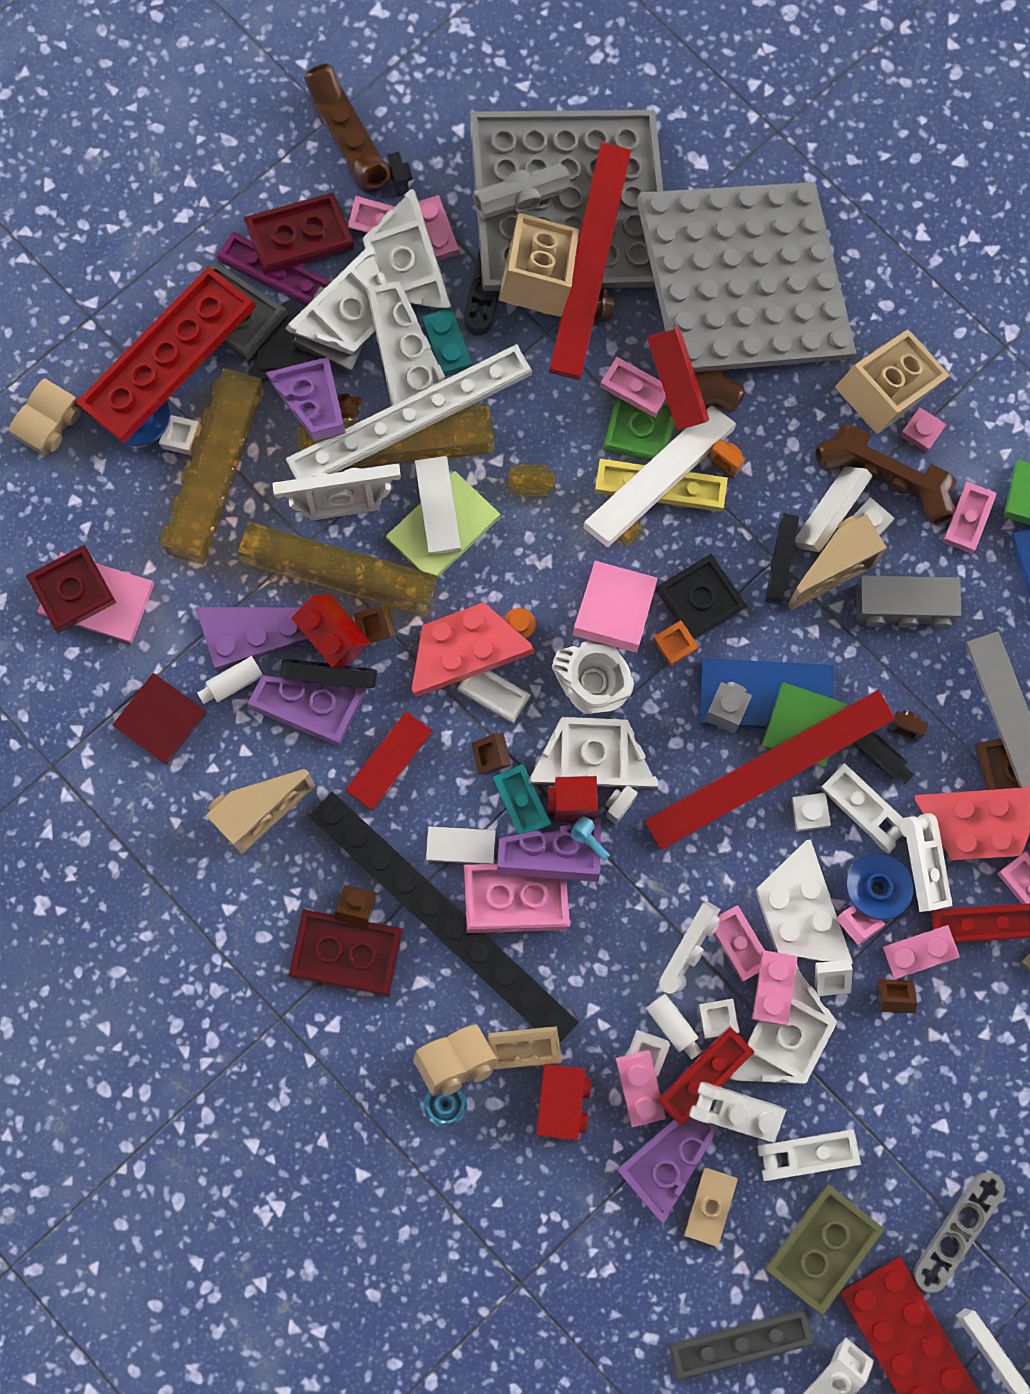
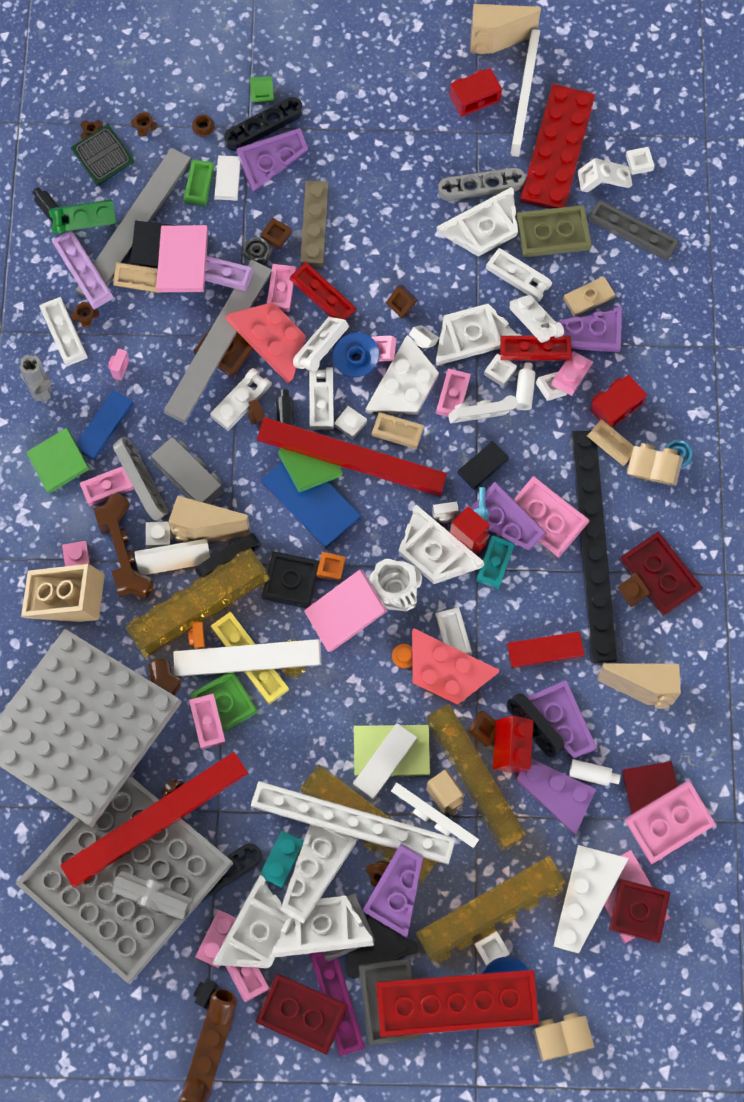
camera: 135 degrees left, 5 degrees down
(114, 700) = (669, 822): none -> bright pink tile
(135, 562) = (588, 890): none -> white wing
(350, 523) = (445, 793): none -> tan brick
(460, 845) = (548, 571): white tile -> none
(491, 754) = (488, 600): reddish brown plate -> none
(531, 480) = (317, 727): clear yellow brick -> none
(539, 265) = (188, 839): tan slope -> none
(634, 896) = (482, 465): none -> black tile
(678, 378) = (184, 695): red tile -> none
(728, 706) = (341, 503): light grey brick -> none
(754, 847) = (397, 430): none -> tan plate
(762, 486) = (197, 603): none -> clear yellow brick
(774, 988) = (459, 355): bright pink plate -> none
(904, 1182) = (483, 225): none -> white wing
(921, 952) = (367, 309): bright pink plate -> none
(943, 730) = (236, 402): none -> white plate
(945, 558) = (140, 478): none -> light grey beam

